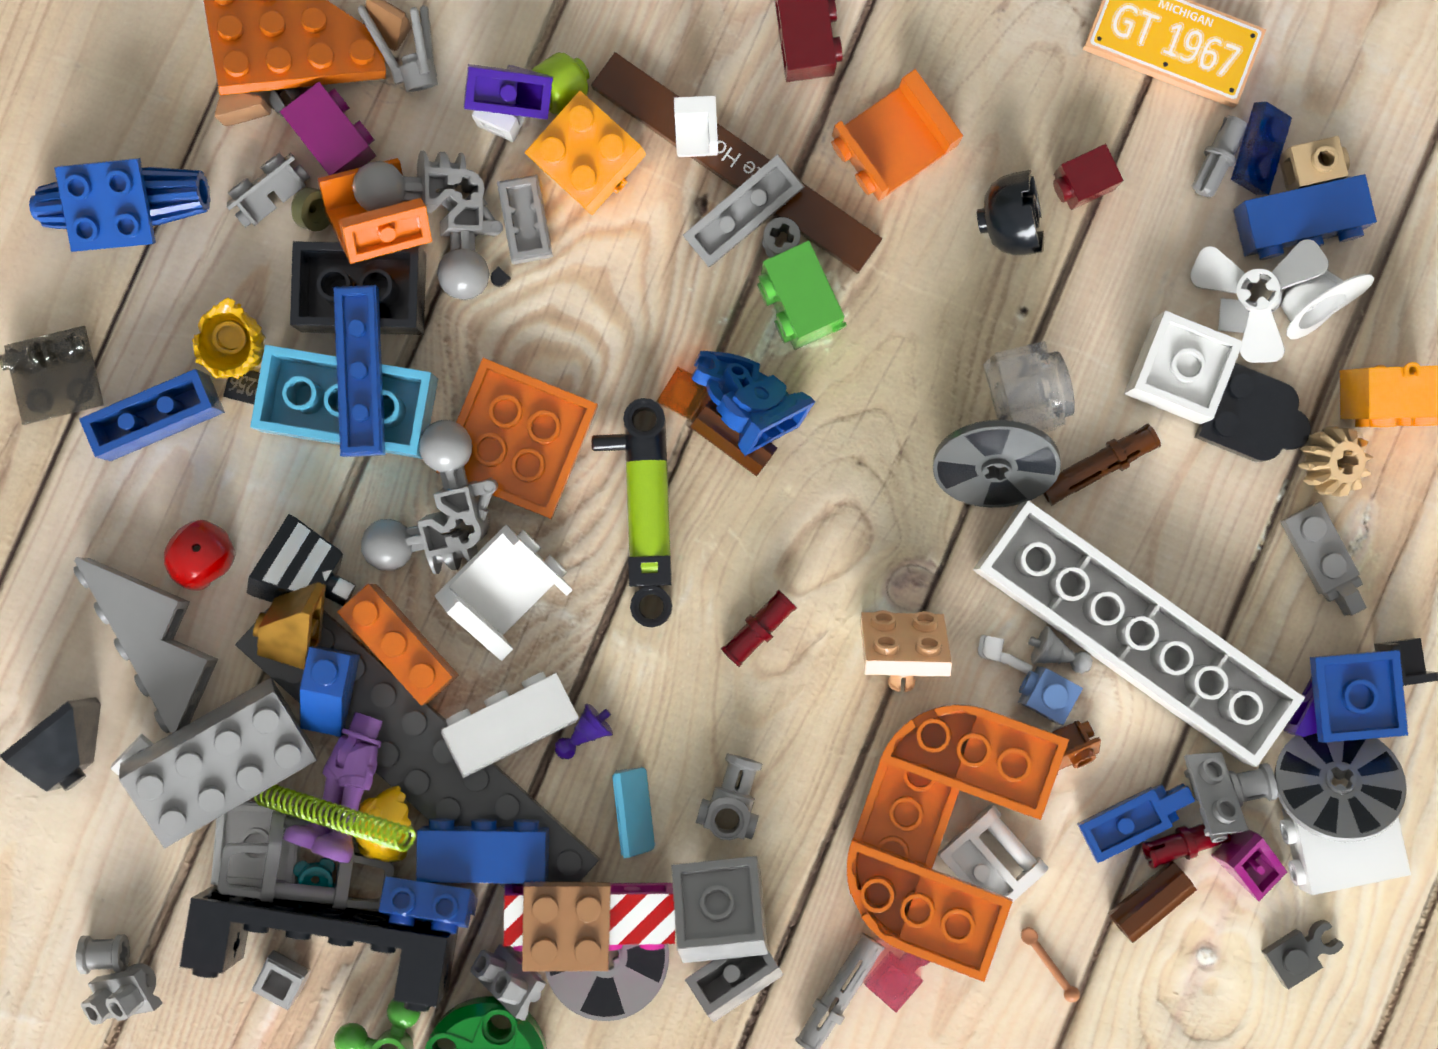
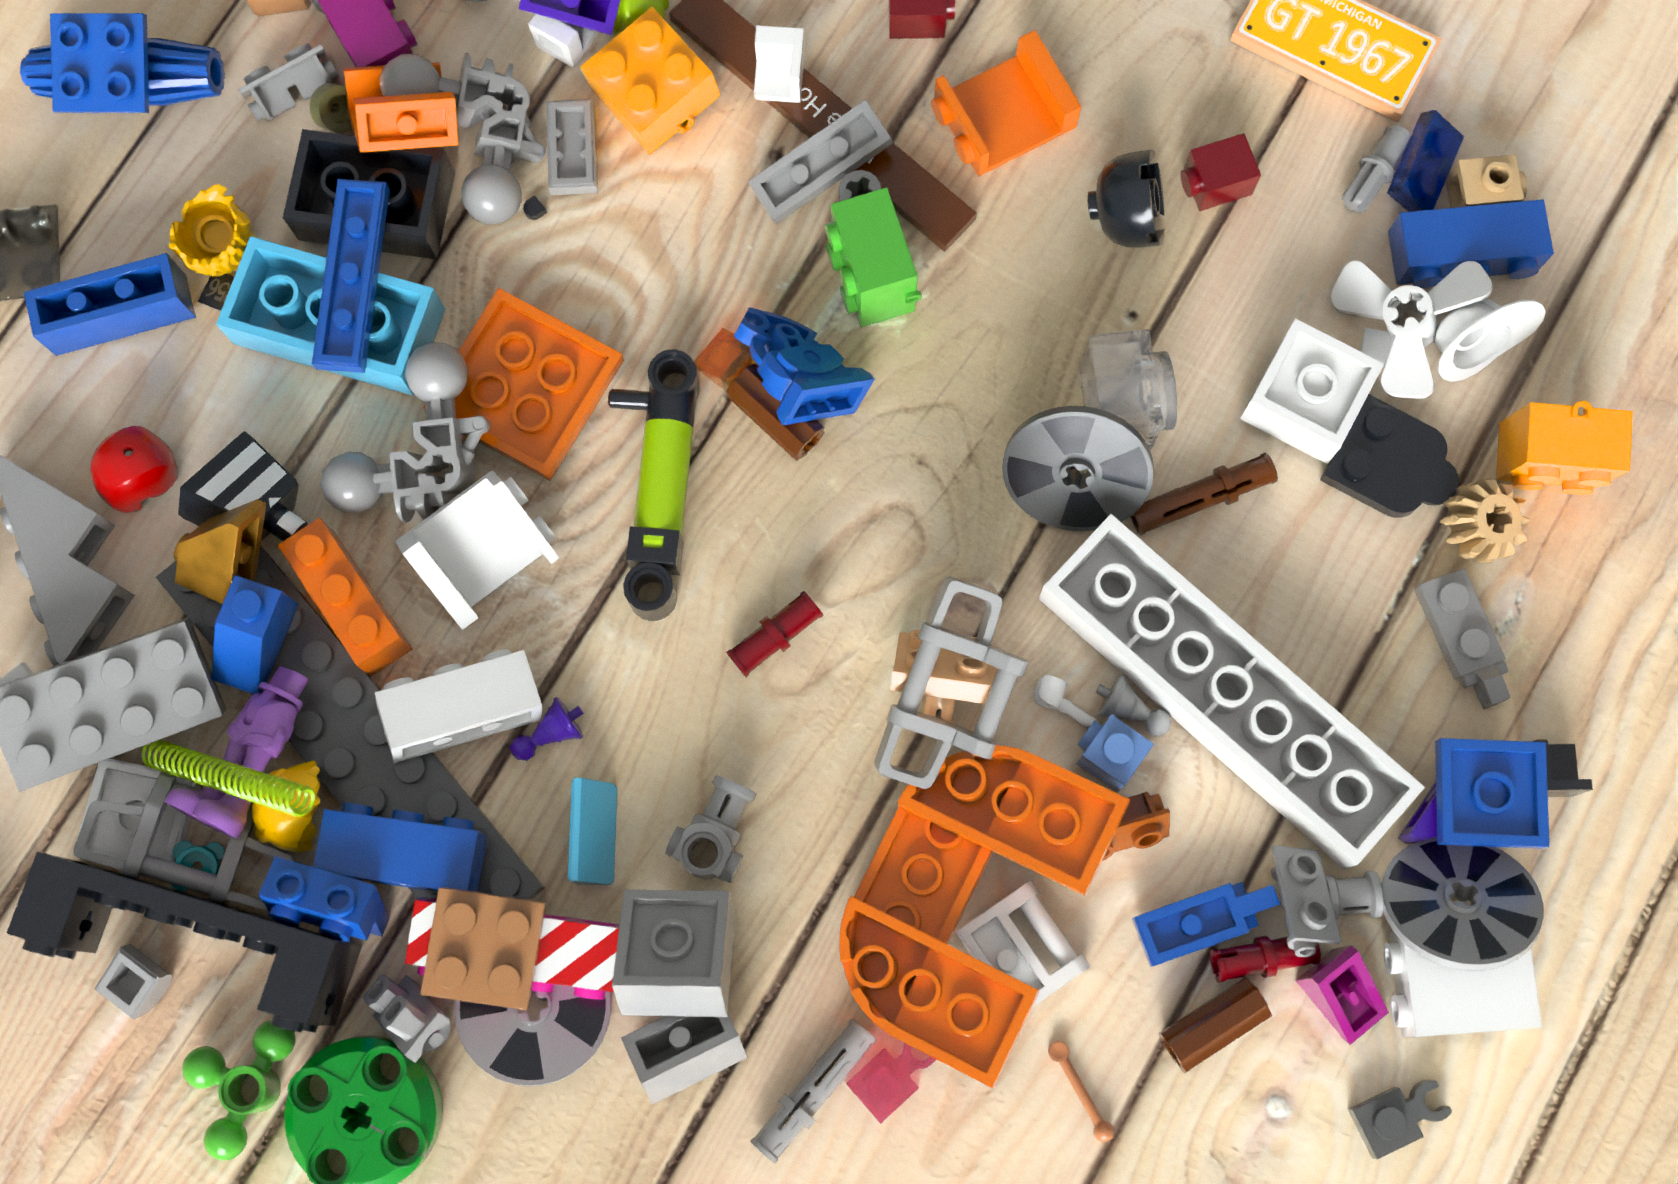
camera: 15 degrees right, 10 degrees down
(914, 702) = (947, 733): none -> light grey bar

